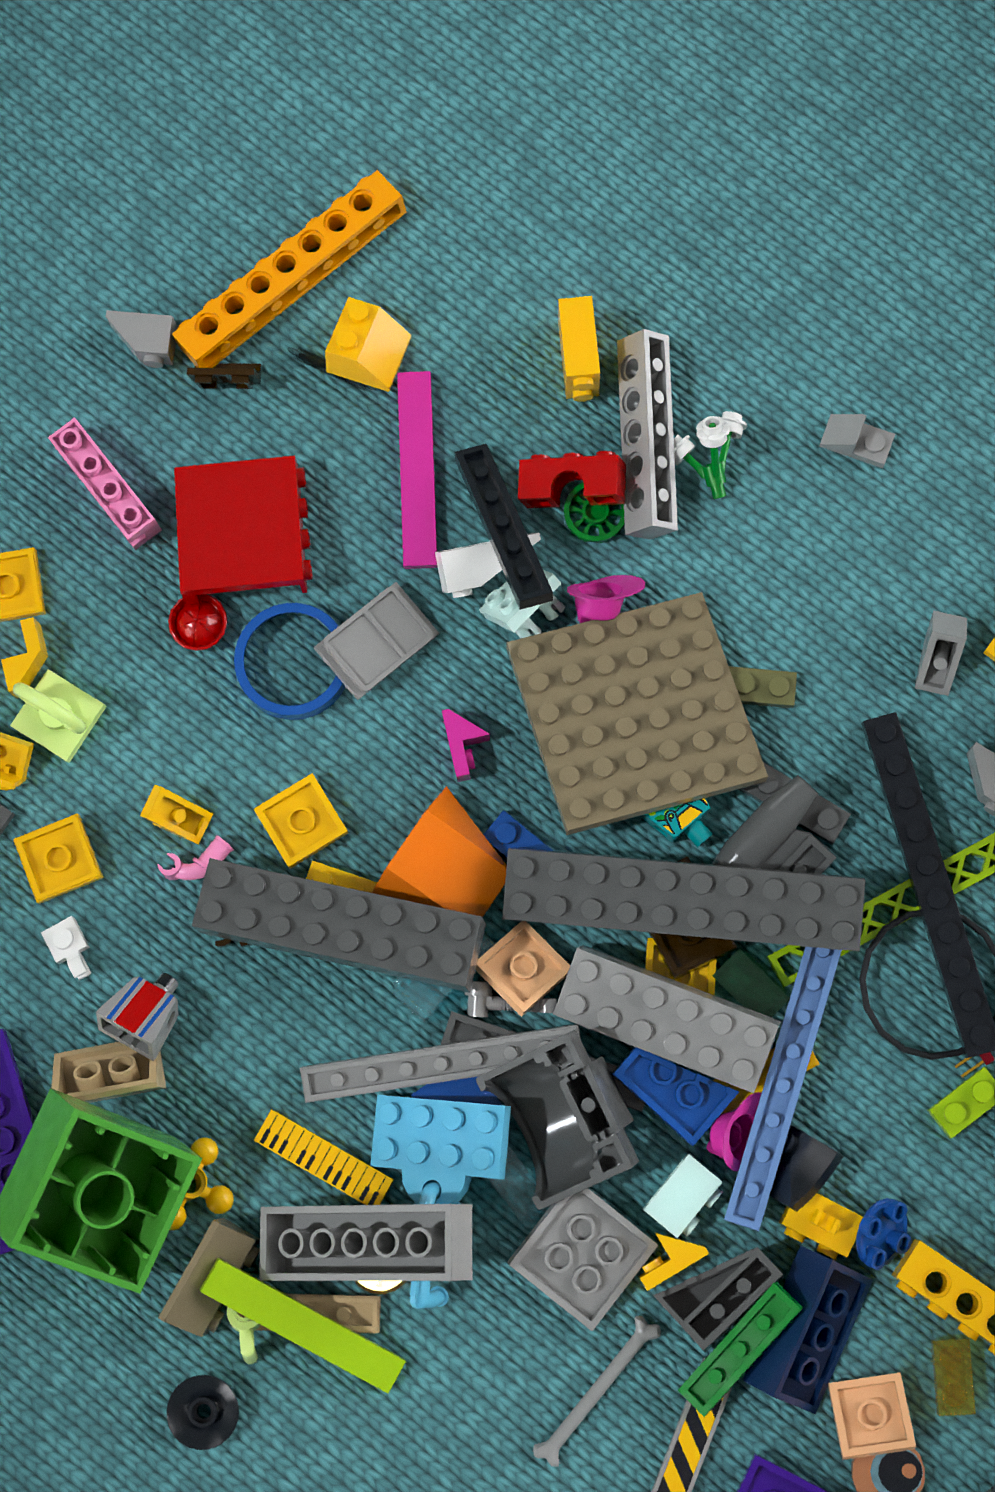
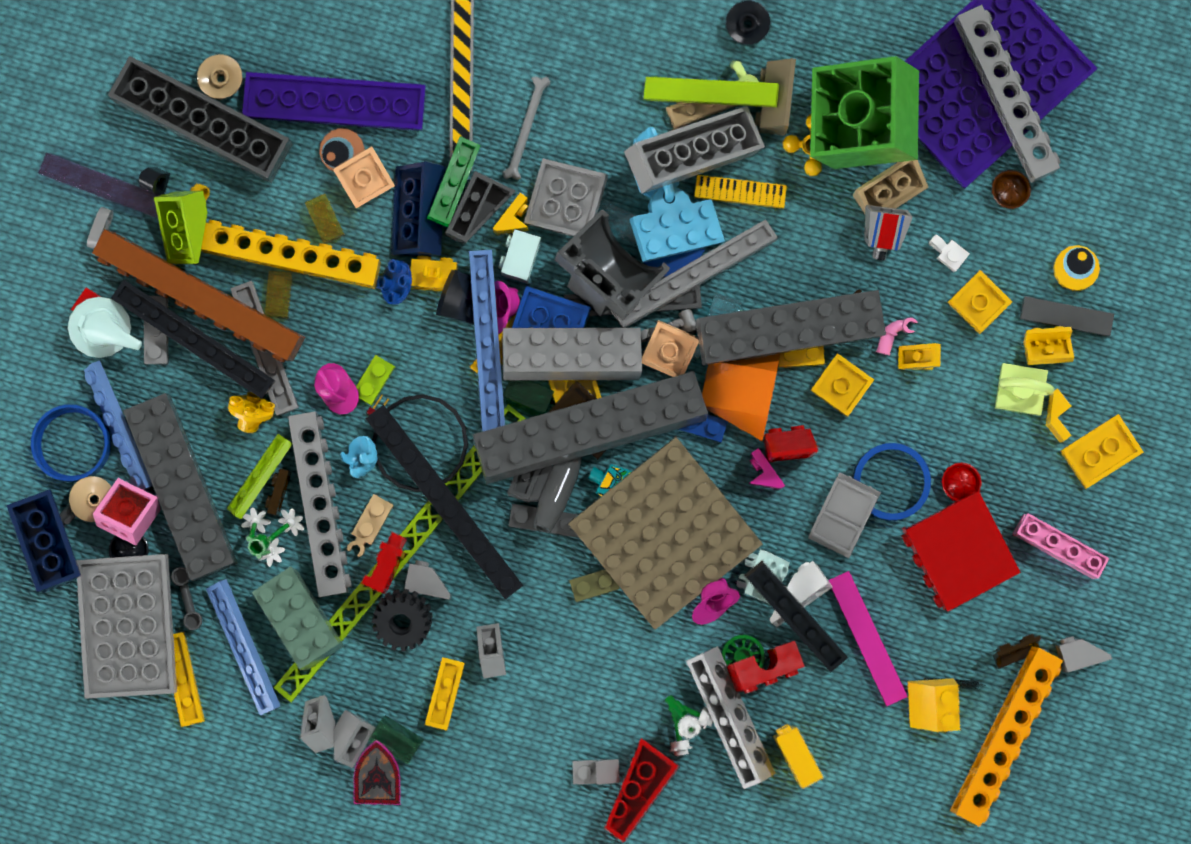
camera: 150 degrees right, 5 degrees up
(410, 761) = (789, 445): none -> red slope
(802, 392) = (643, 784): none -> red wedge

